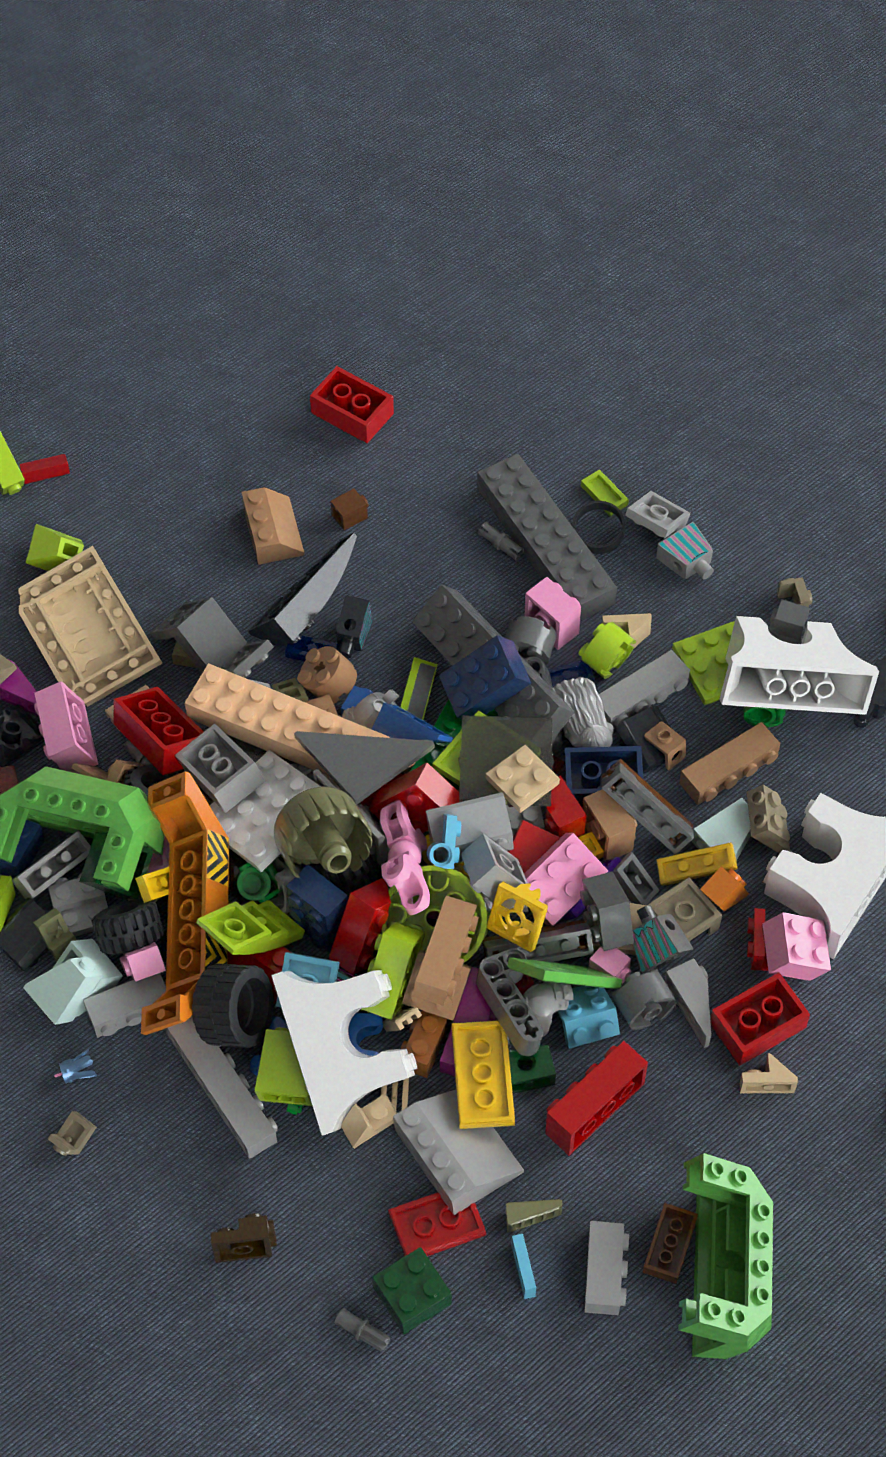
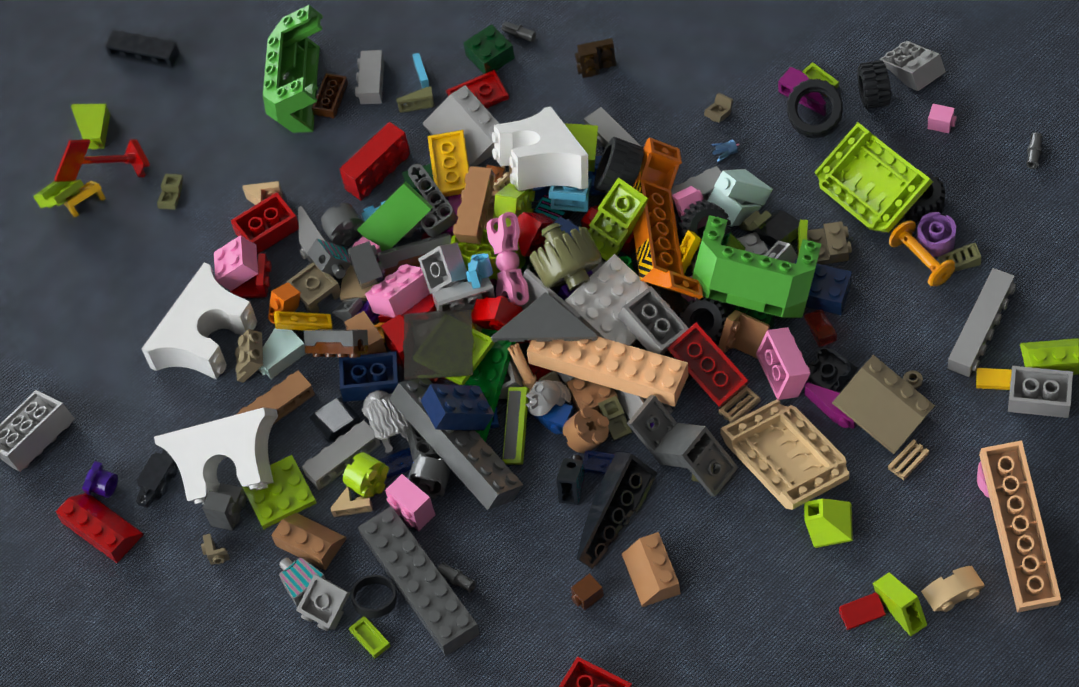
camera: 175 degrees left, 0 degrees up
(401, 724) = (512, 367): blue slope -> none
(512, 930) = (422, 241): yellow piece -> none
(522, 778) = (424, 325): tan plate -> none
(667, 742) = (322, 409): medium nougat bracket -> none
(679, 596) = (308, 540): none -> medium nougat slope

